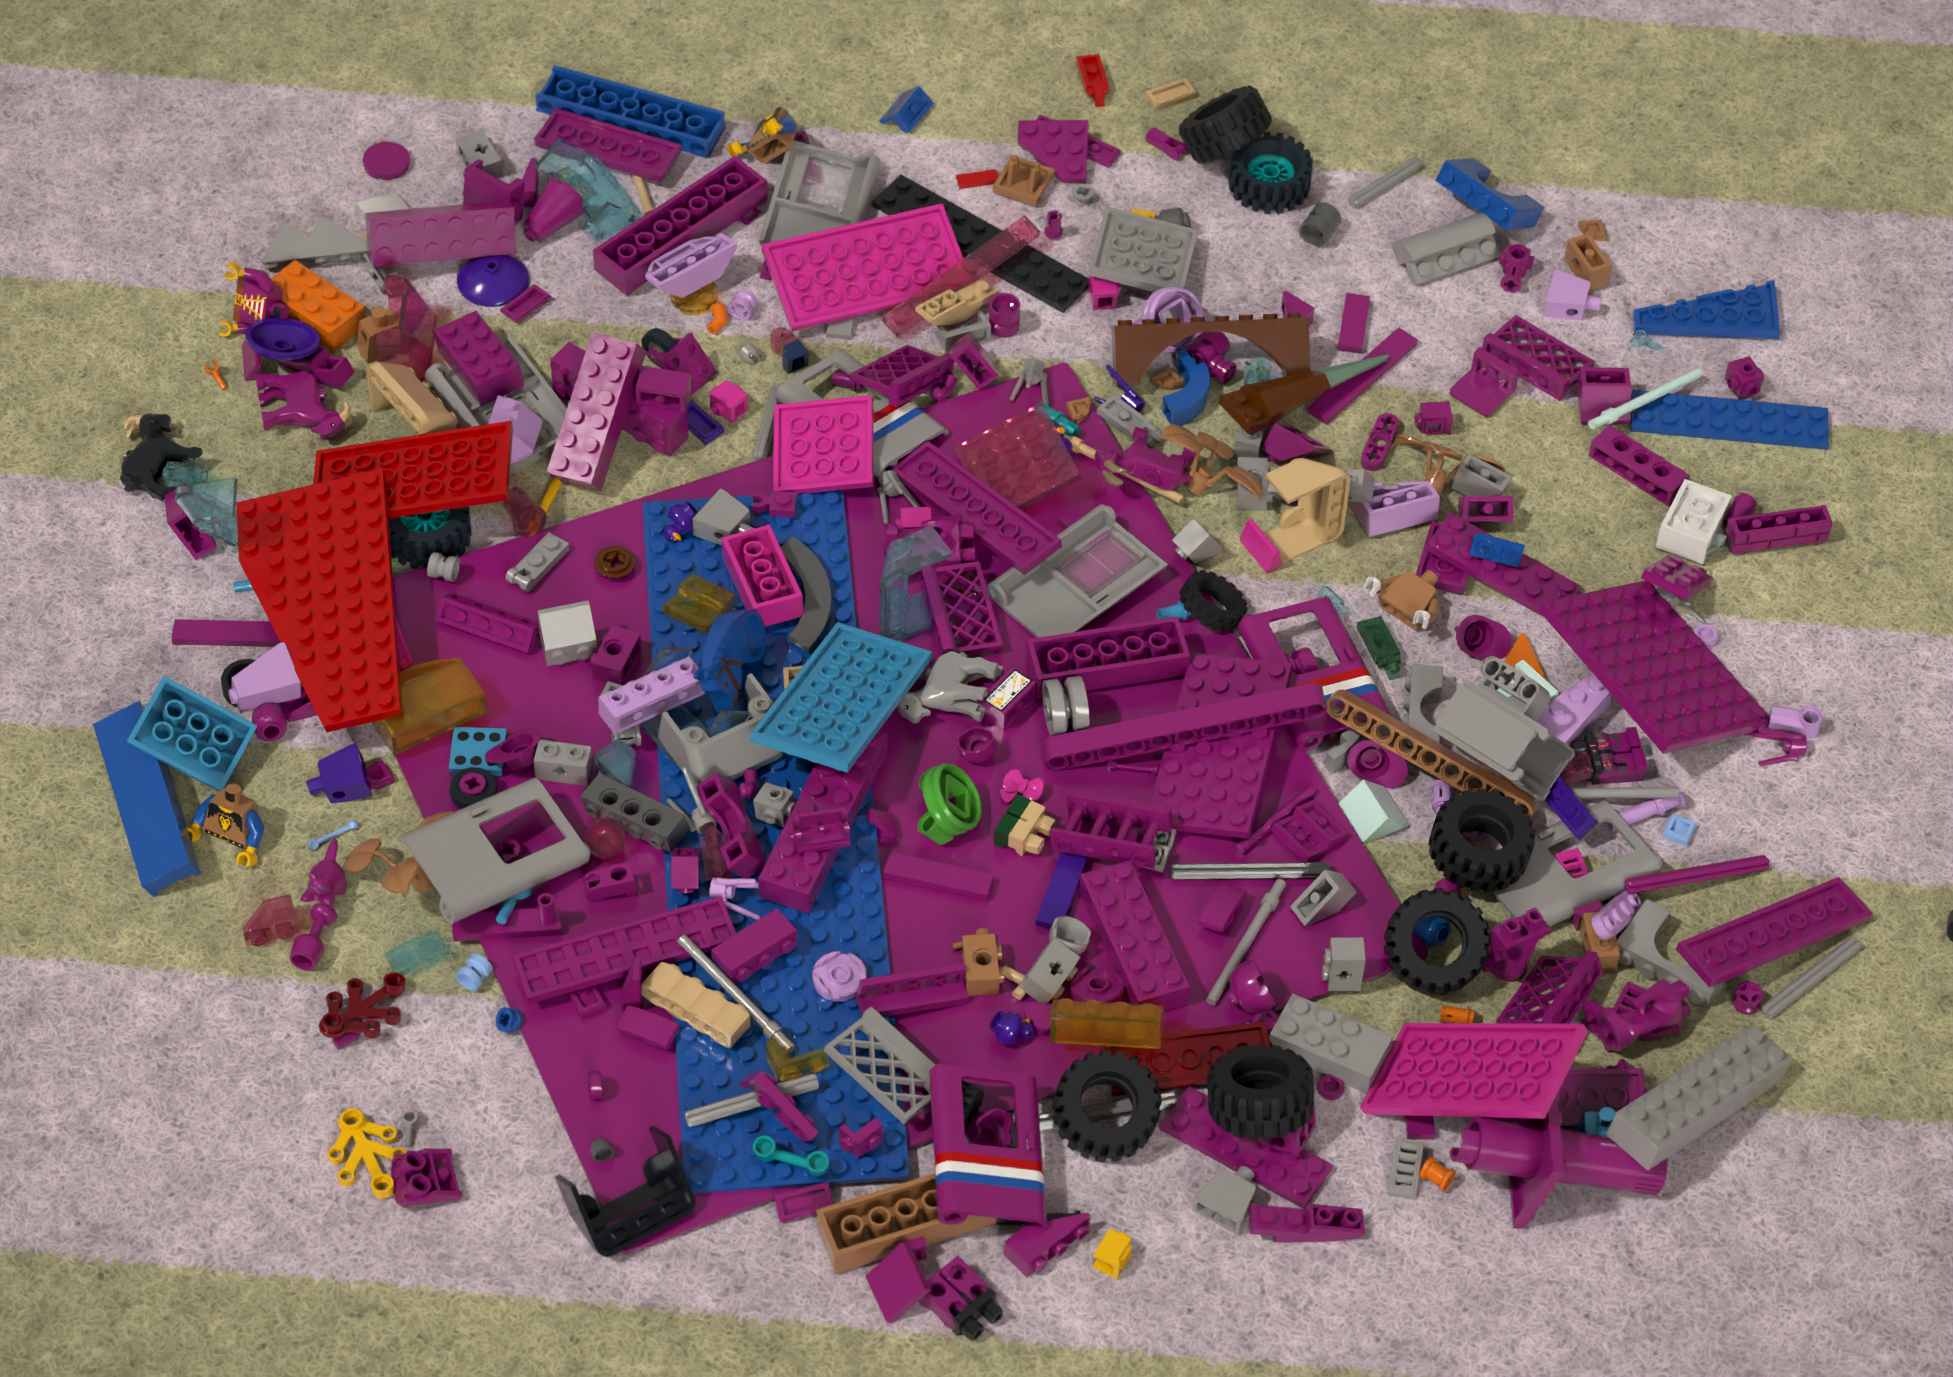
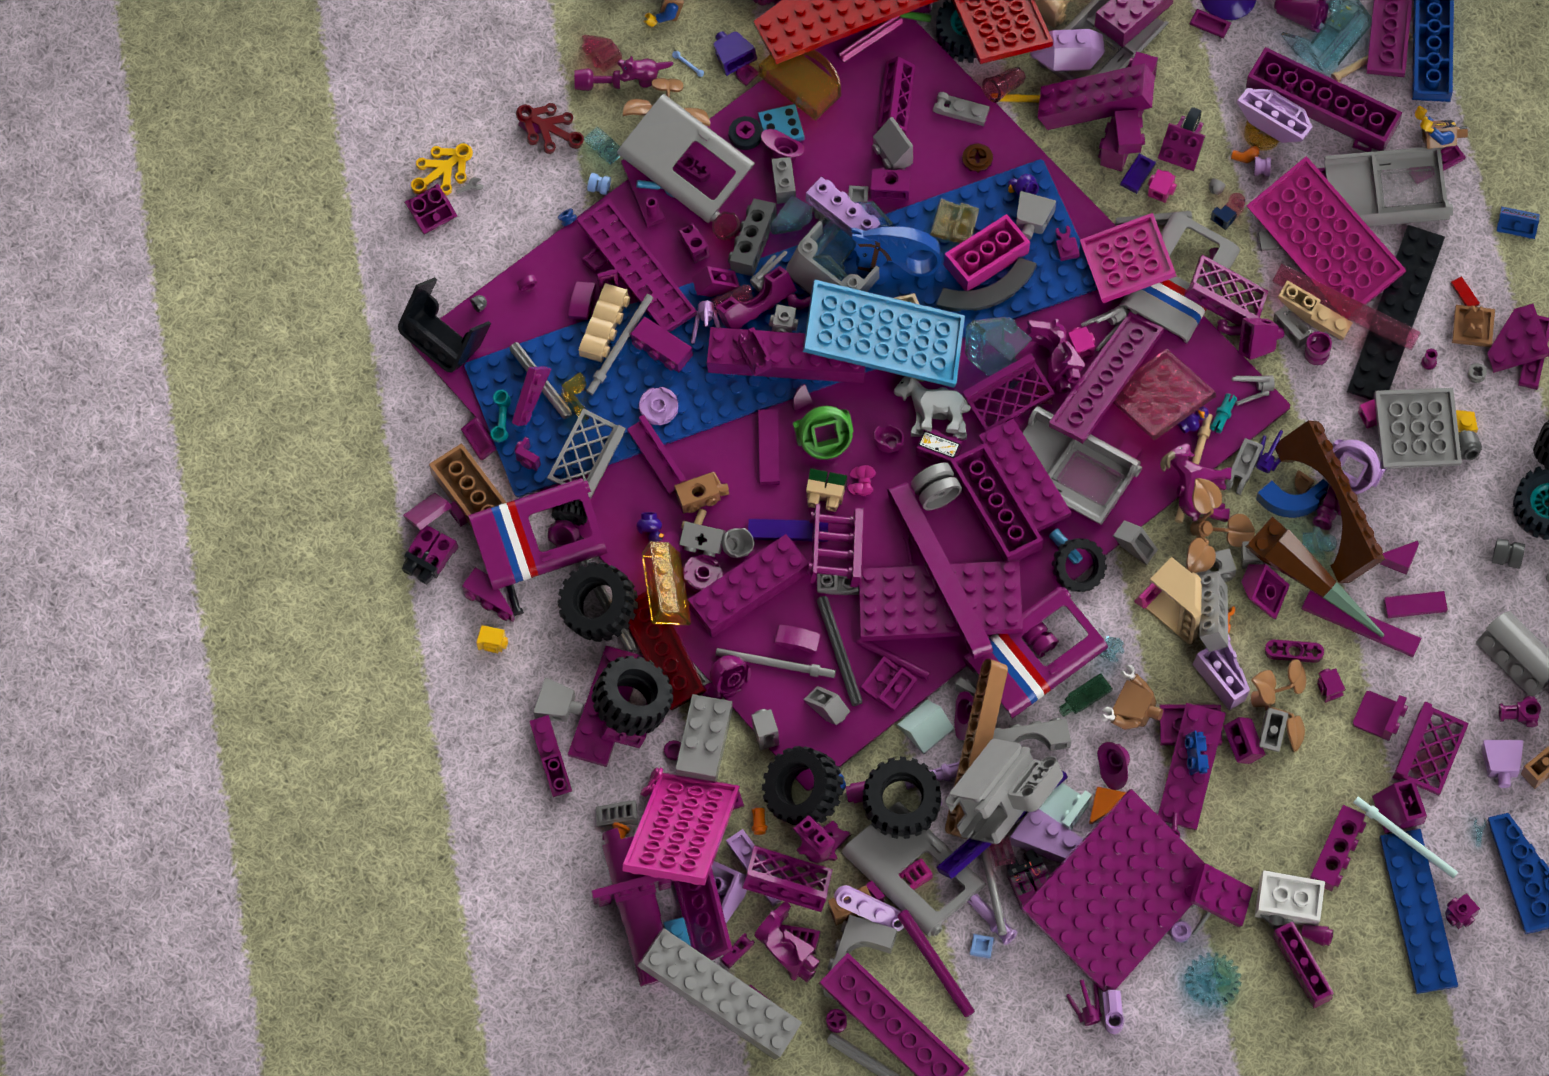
camera: 80 degrees right, 15 degrees up
(442, 566) = (932, 50): light grey wheel -> none
(1076, 614) = (1026, 474): none -> magenta plate
(1078, 409) = (1241, 426): medium nougat tile -> none
(1381, 1121) = (655, 774): none -> dark pink piece
(1786, 629) = (1205, 978): none -> clear light blue gear

